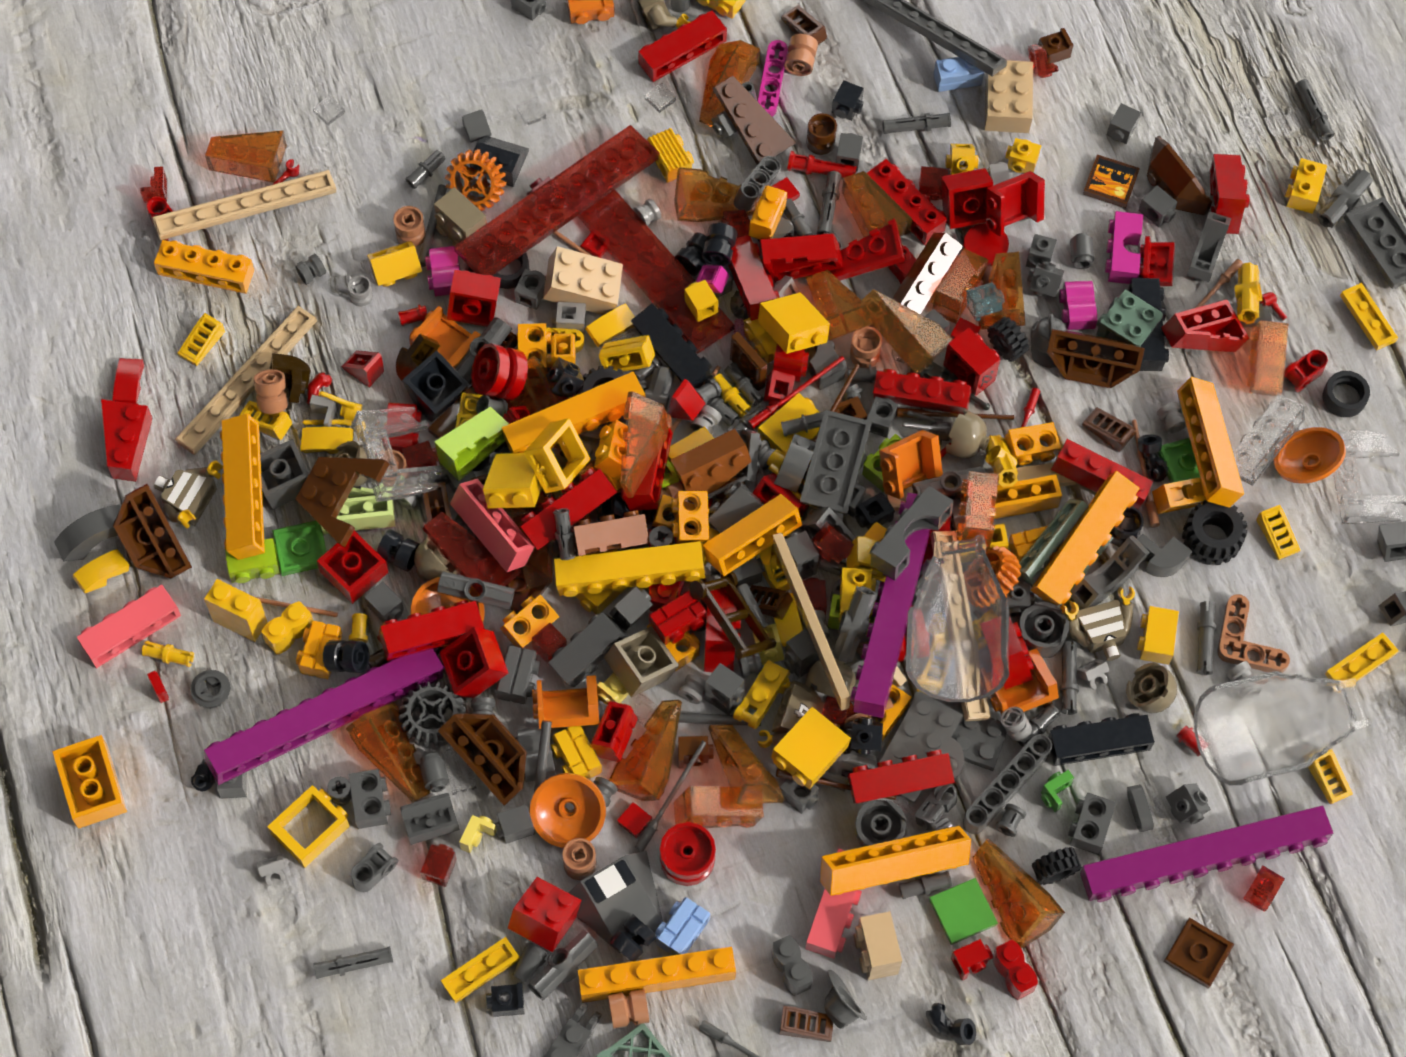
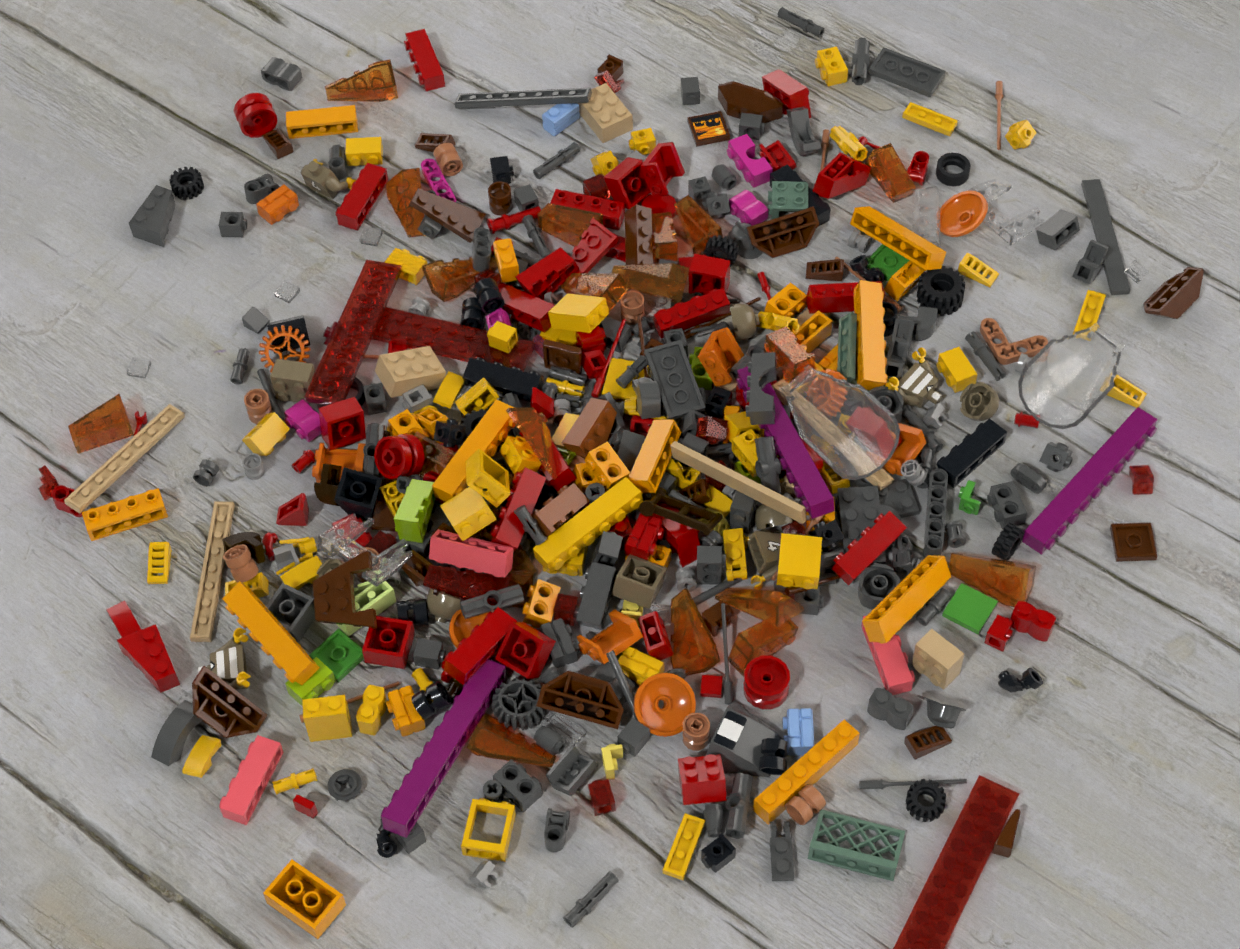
camera: 30 degrees left, 10 degrees down
(984, 300) = (690, 233): clear light blue brick -> none

